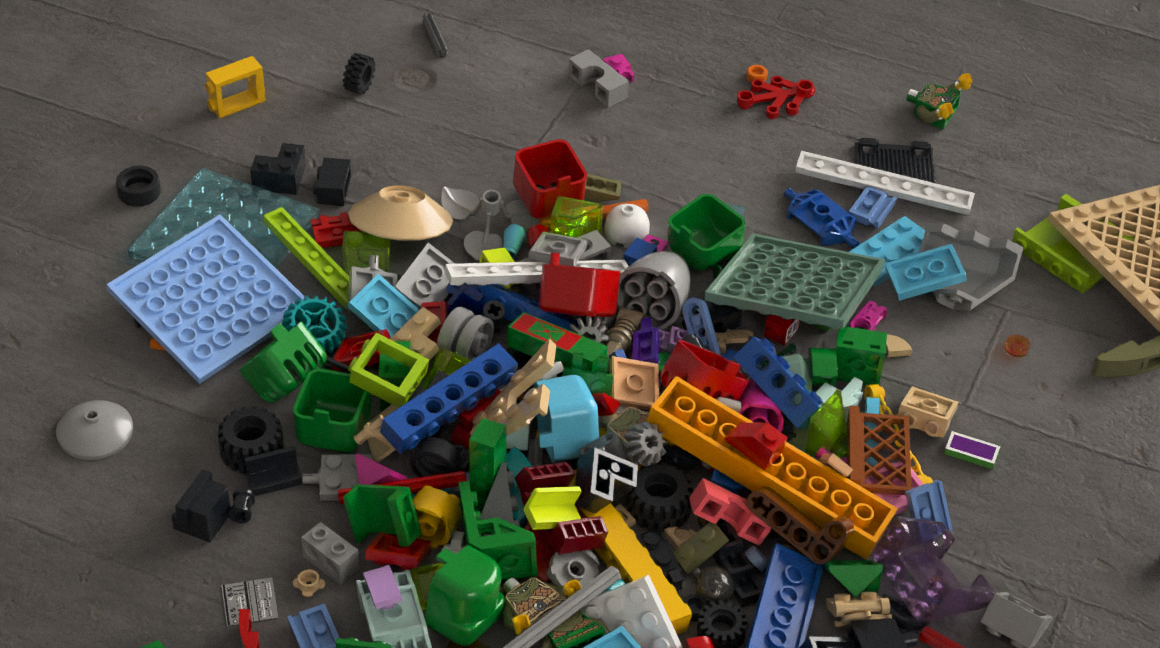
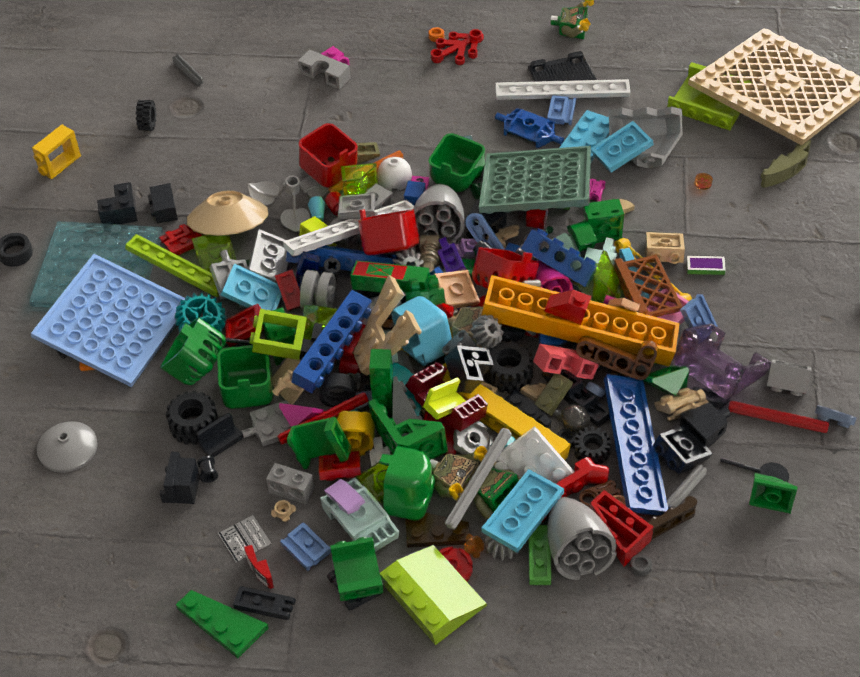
camera: 15 degrees left, 5 degrees up
(417, 331) = (281, 296): tan plate -> none

